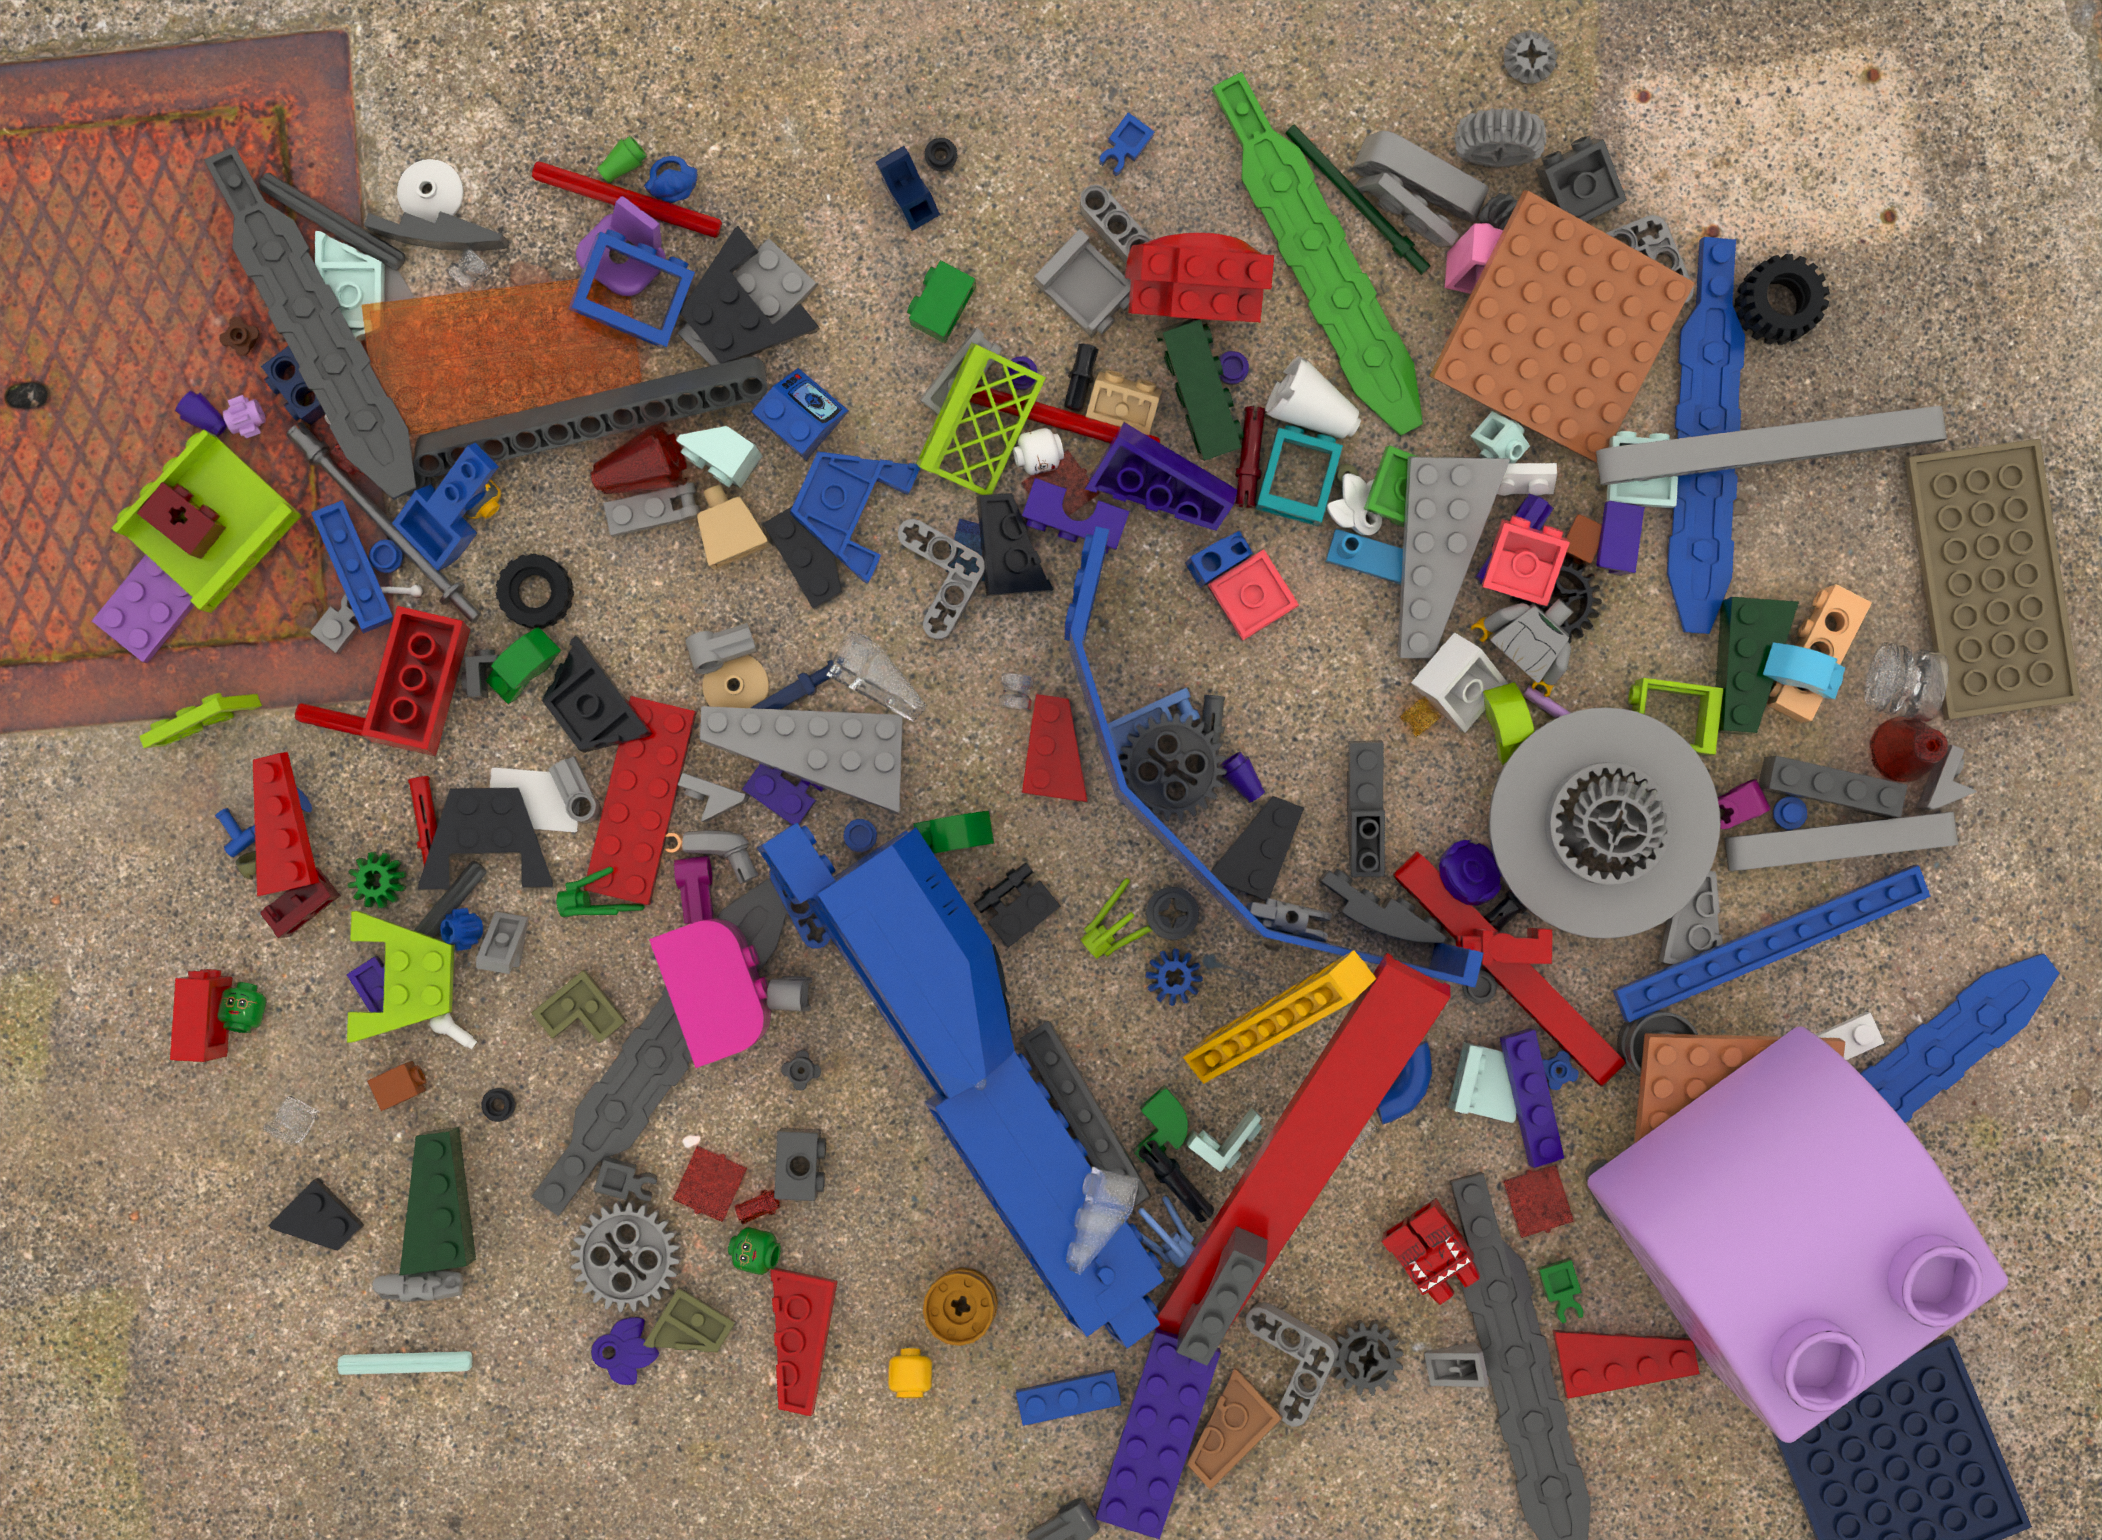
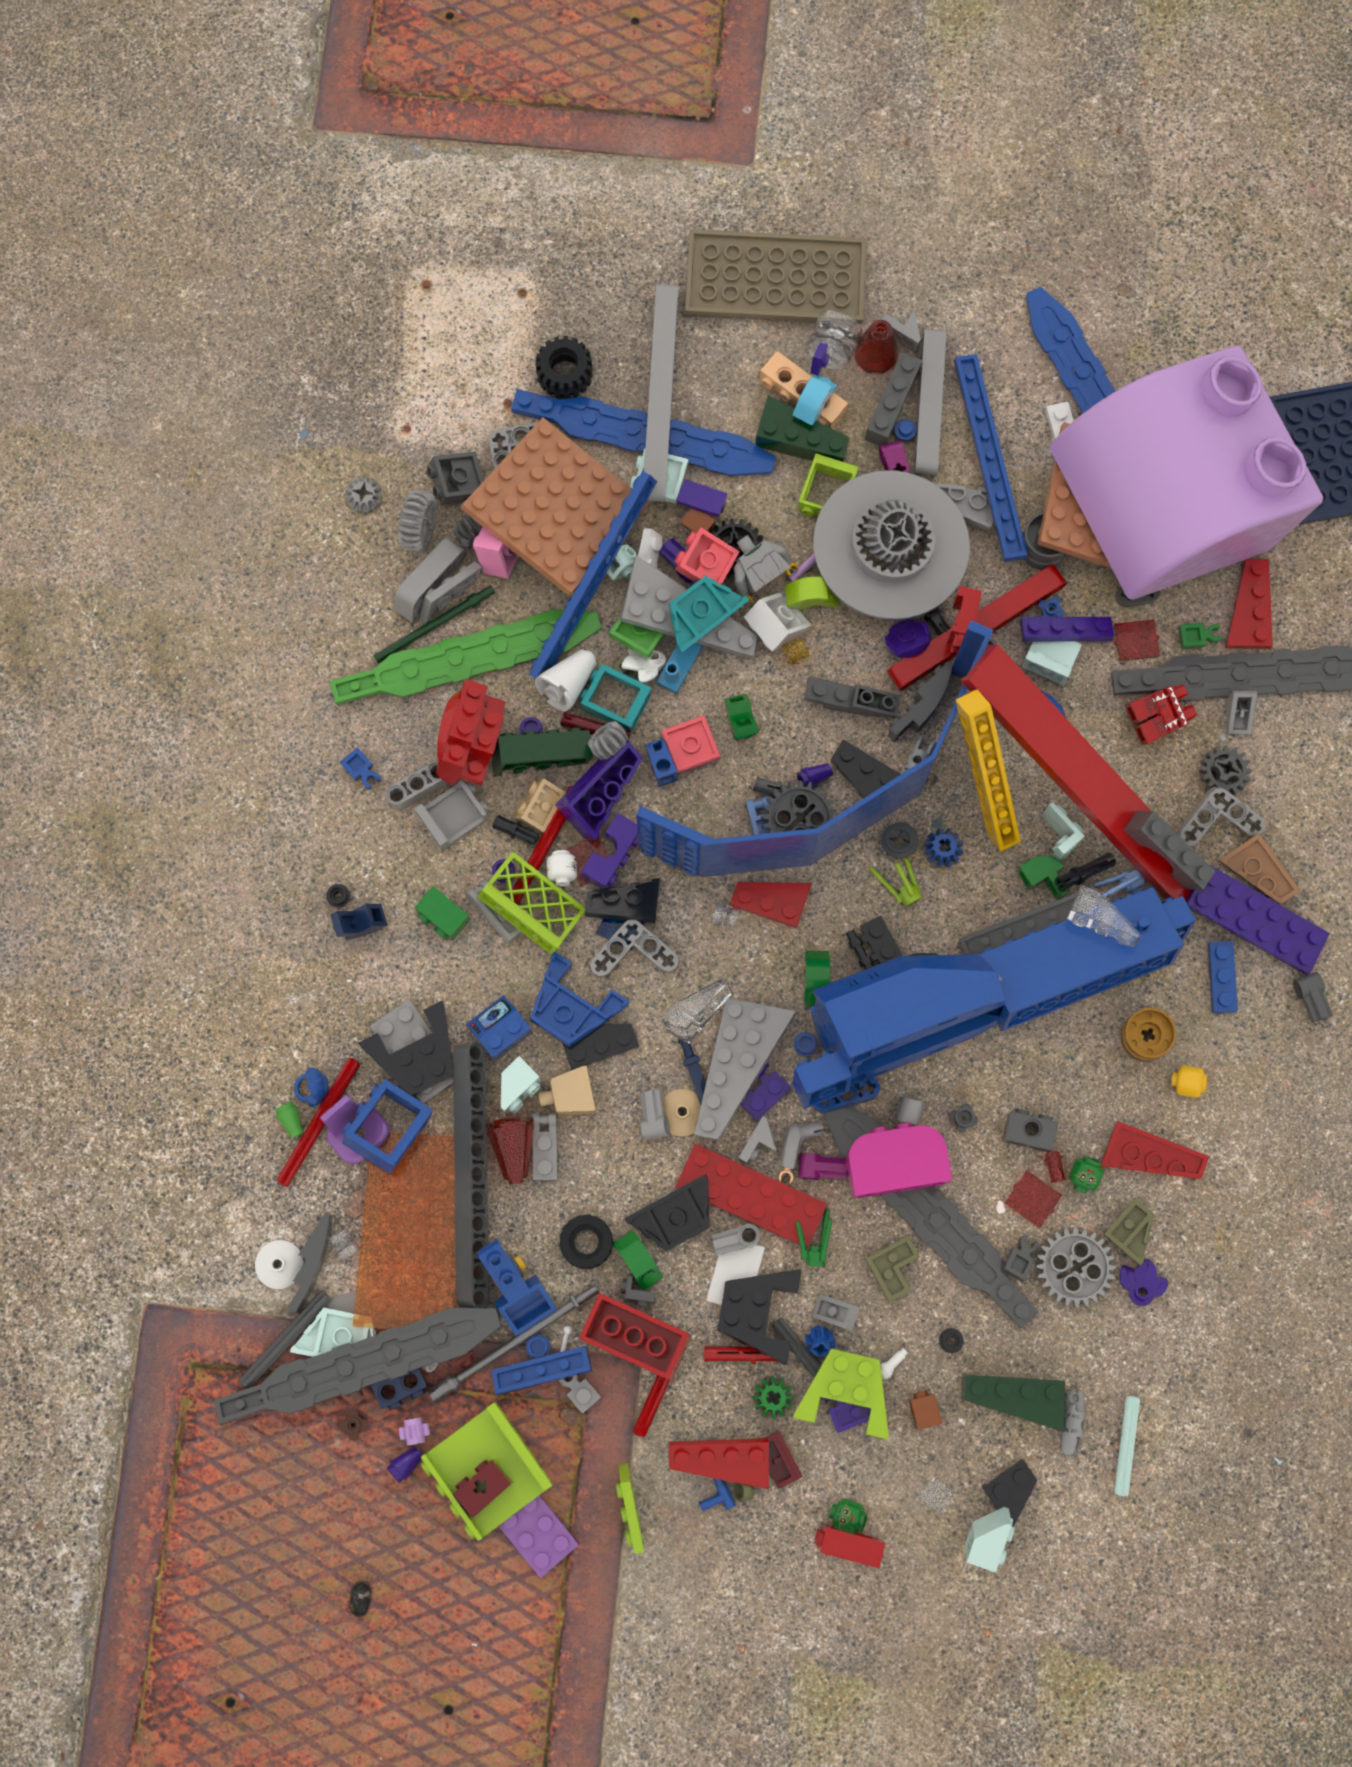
camera: 80 degrees left, 10 degrees down
(241, 1198) = (988, 1538): none -> light aqua slope
(1229, 475) = (608, 740): none -> light grey gear
(1305, 657) = (741, 717): none -> green brick
(1446, 569) = (701, 610): none -> teal wing
(1477, 407) = (595, 573): none -> blue plate
(1868, 666) = (820, 359): none -> dark purple plate

